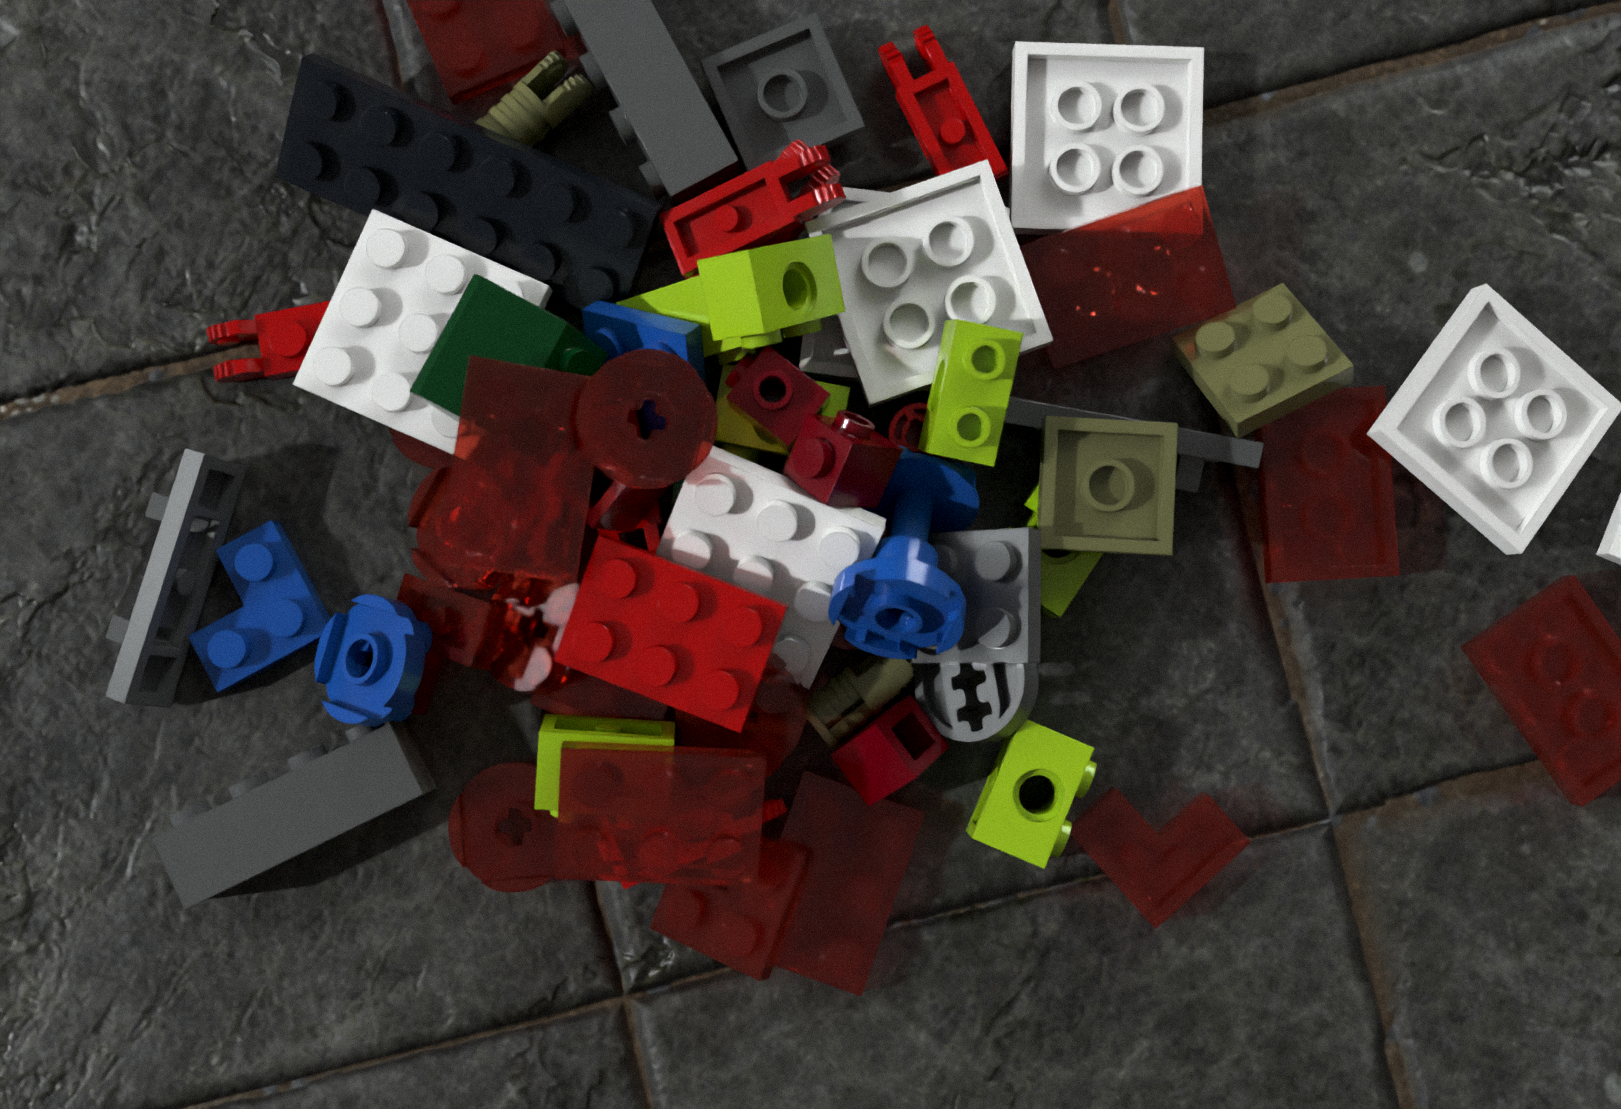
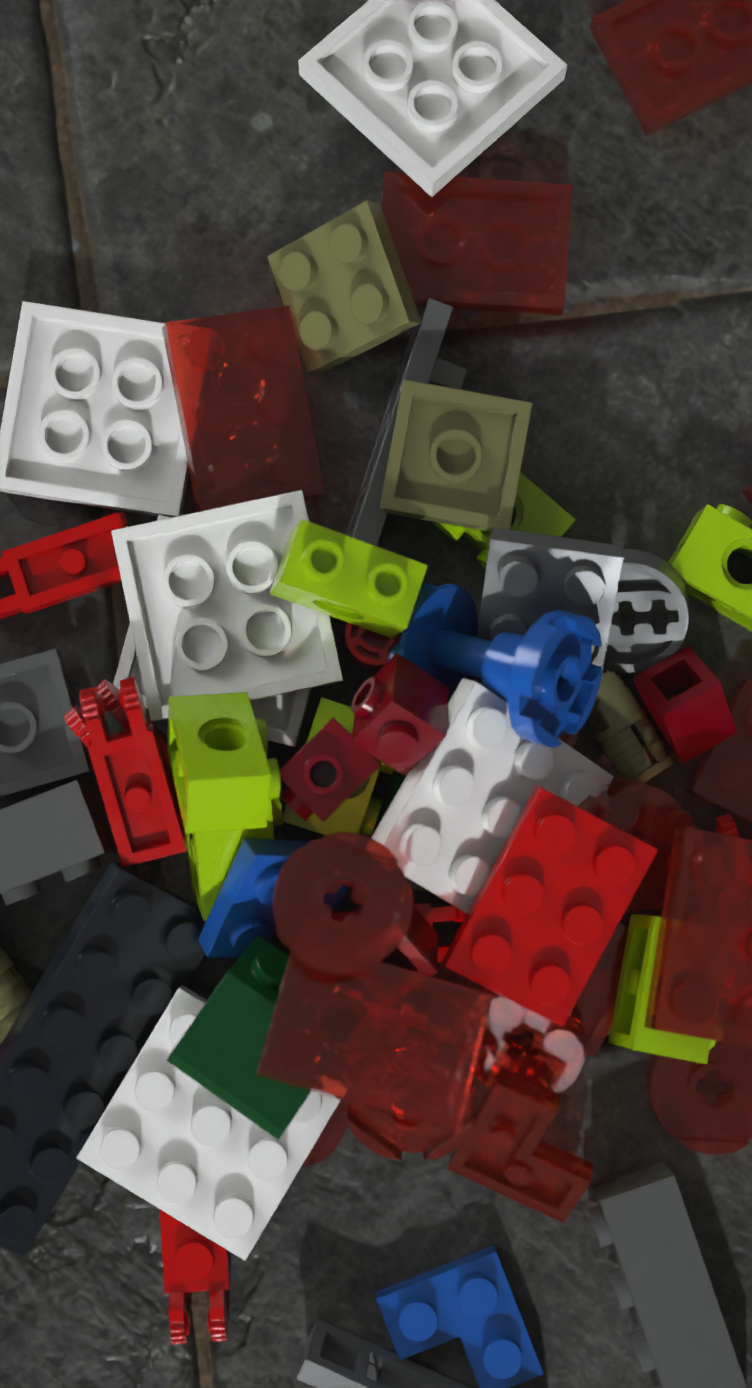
camera: 80 degrees left, 0 degrees up
(399, 648) = (532, 1182): blue plate -> none

